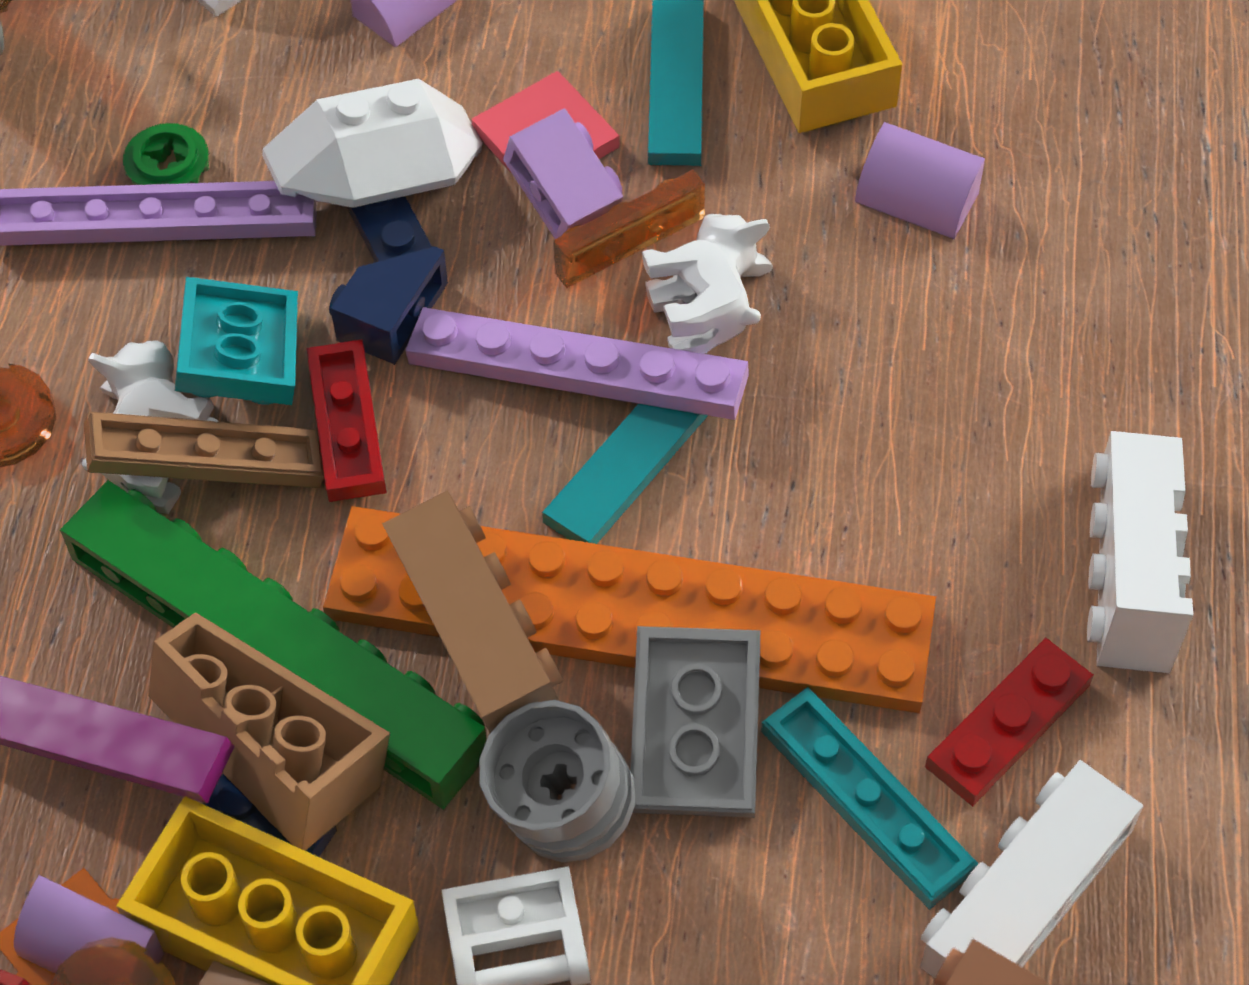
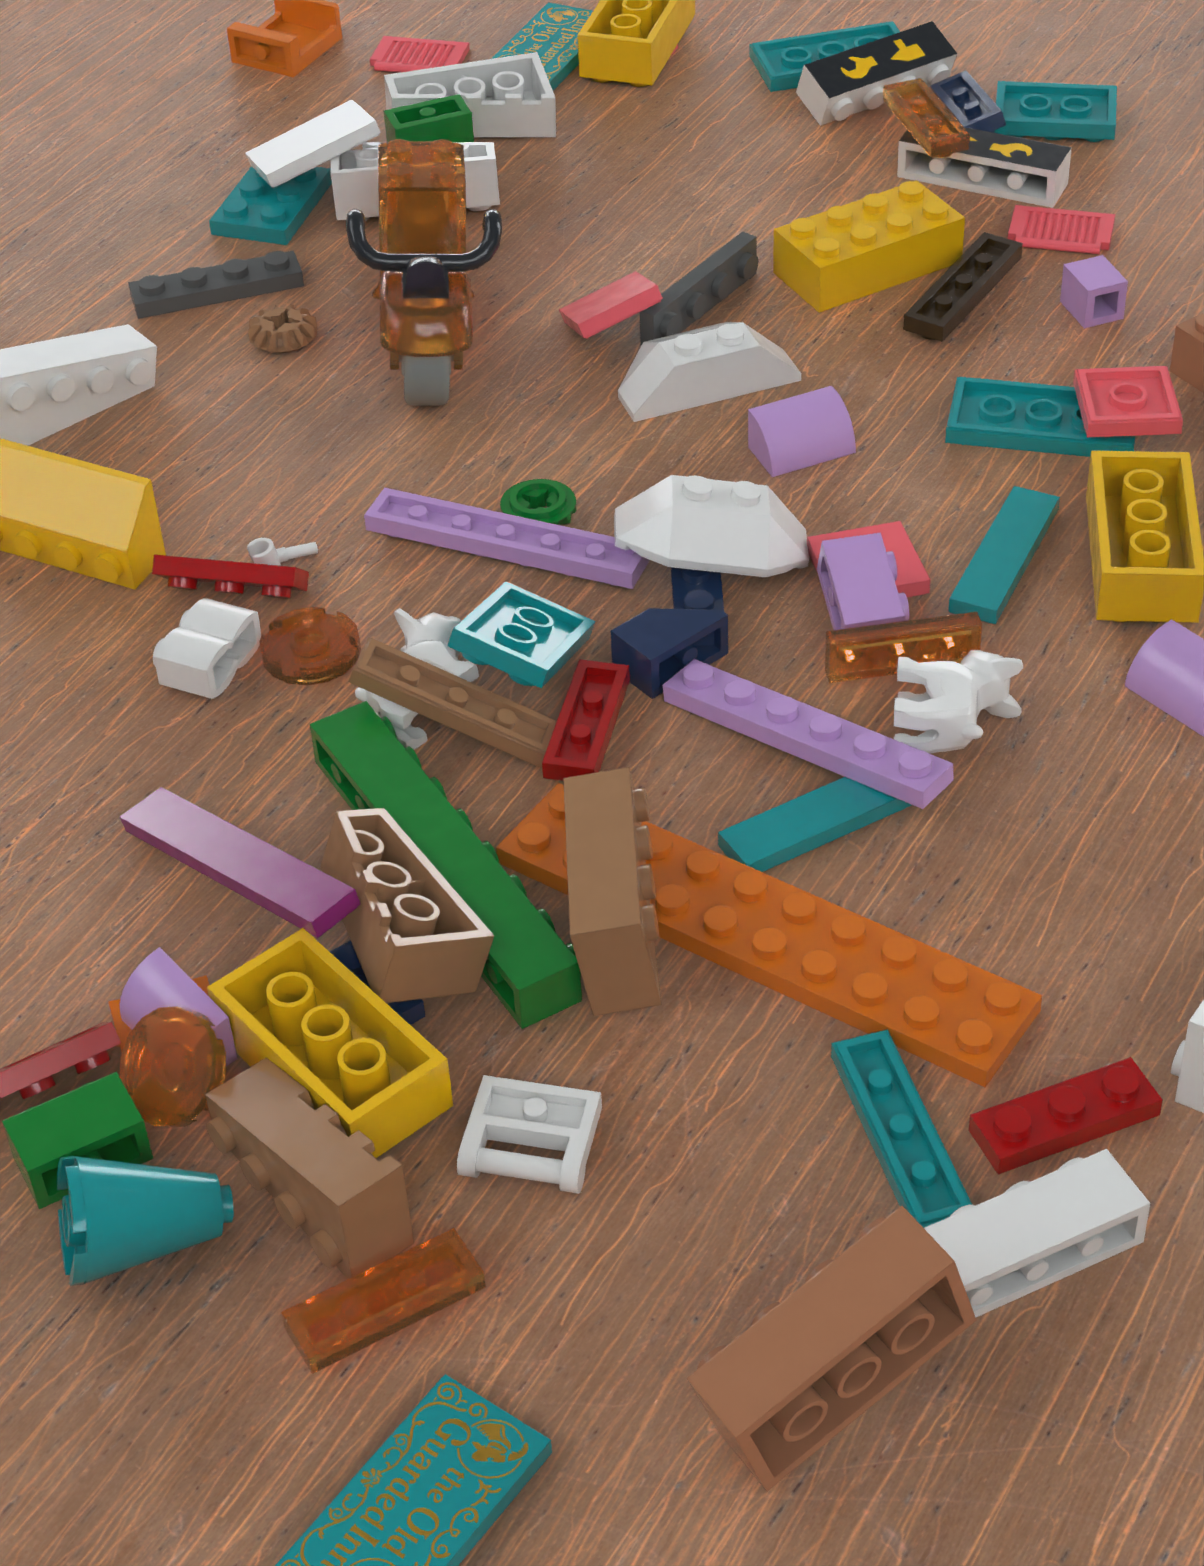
camera: 25 degrees right, 15 degrees down
(539, 756) = (620, 1018): light grey wheel -> none
(695, 721) = (770, 1022): light grey tile -> none

